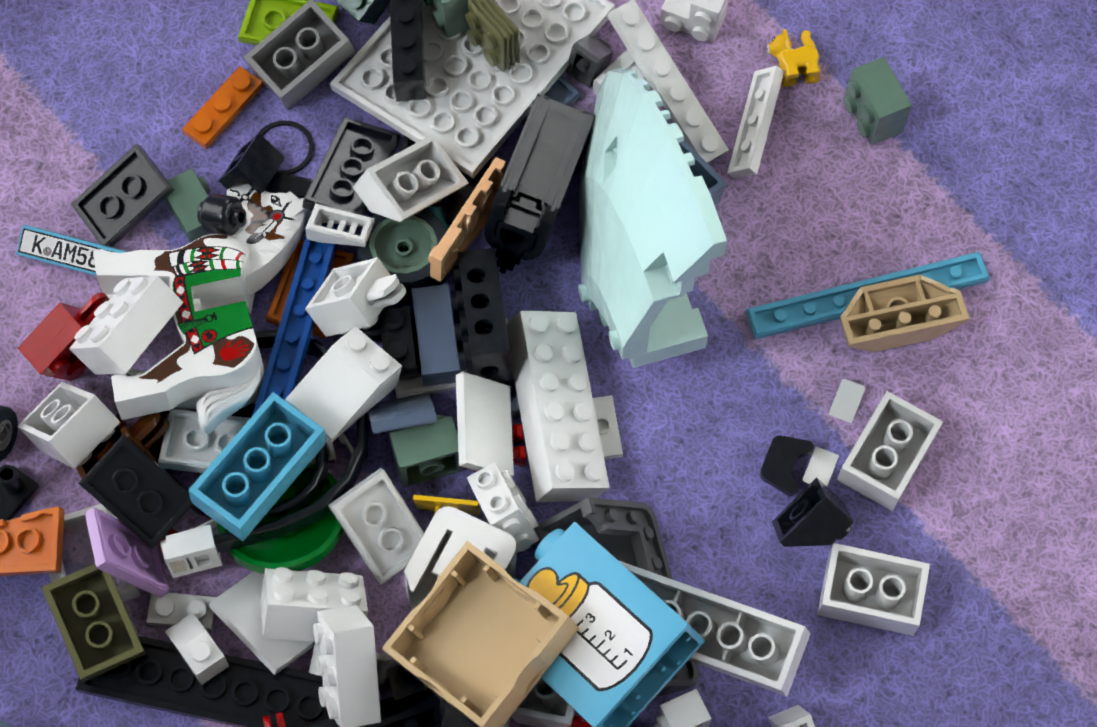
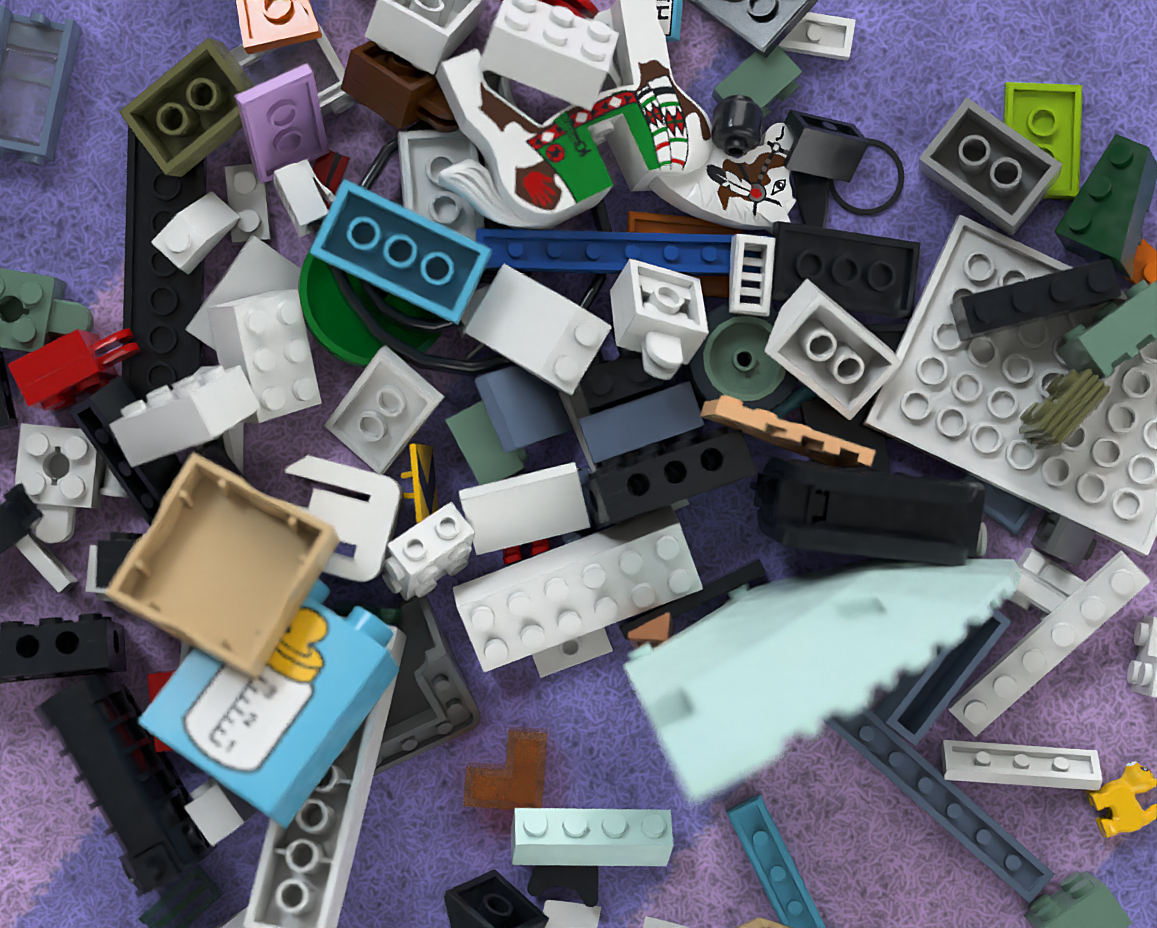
camera: 80 degrees right, 20 degrees up
(137, 491) = (353, 117): black tile -> none
(169, 152) = (821, 36): none -> white plate
(222, 107) = (903, 87): orange plate -> none
(576, 304) = (710, 591): none -> black tile
(607, 357) = (653, 632): none -> nougat slope
(700, 480) = (510, 784): none -> clear orange brick
(756, 433) = (591, 837): none -> light aqua brick
(786, 172) = (942, 800): none -> sand blue plate

